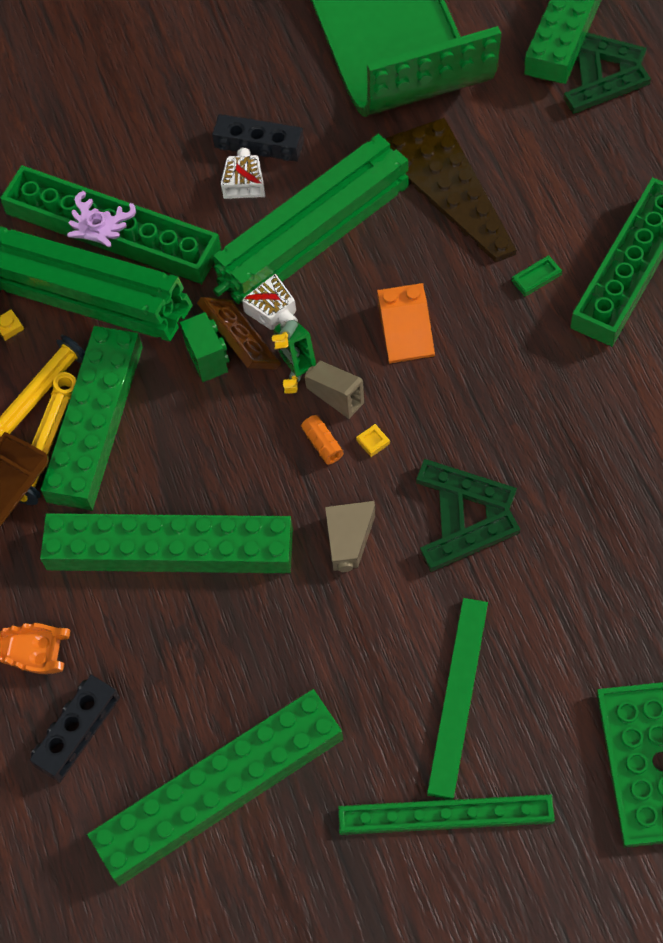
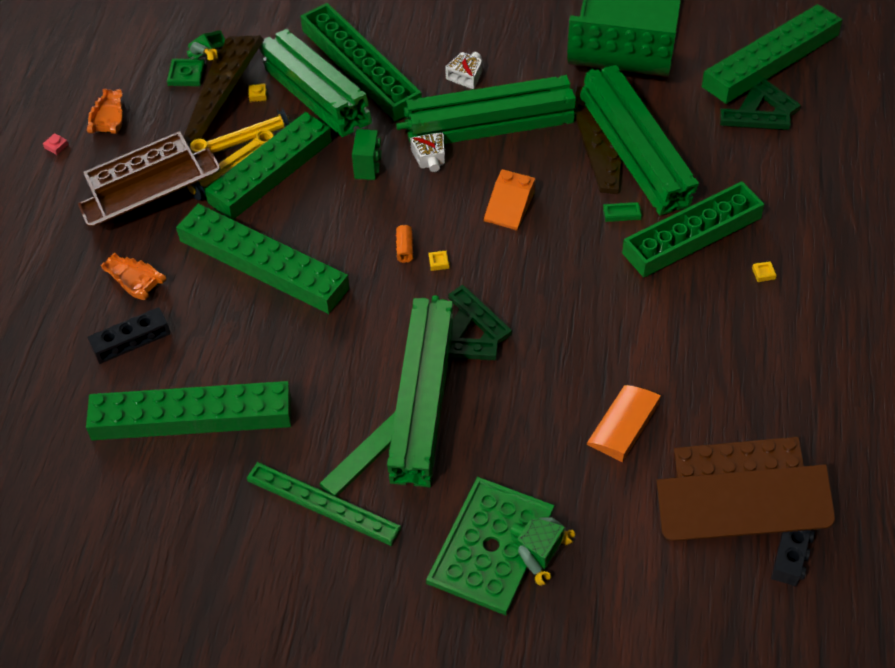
camera: 25 degrees right, 10 degrees down
(98, 225) = (346, 53): lavender animal -> none
(239, 333) = (394, 157): reddish brown tile -> none
(259, 137) = (492, 51): black brick -> none
(296, 350) = (423, 181): torso -> none
(336, 387) = (435, 217): dark tan slope -> none
(348, 533) = (381, 305): dark tan slope -> none
(476, 620) = (421, 392): none -> green brick
(505, 177) = (638, 140): none -> green brick

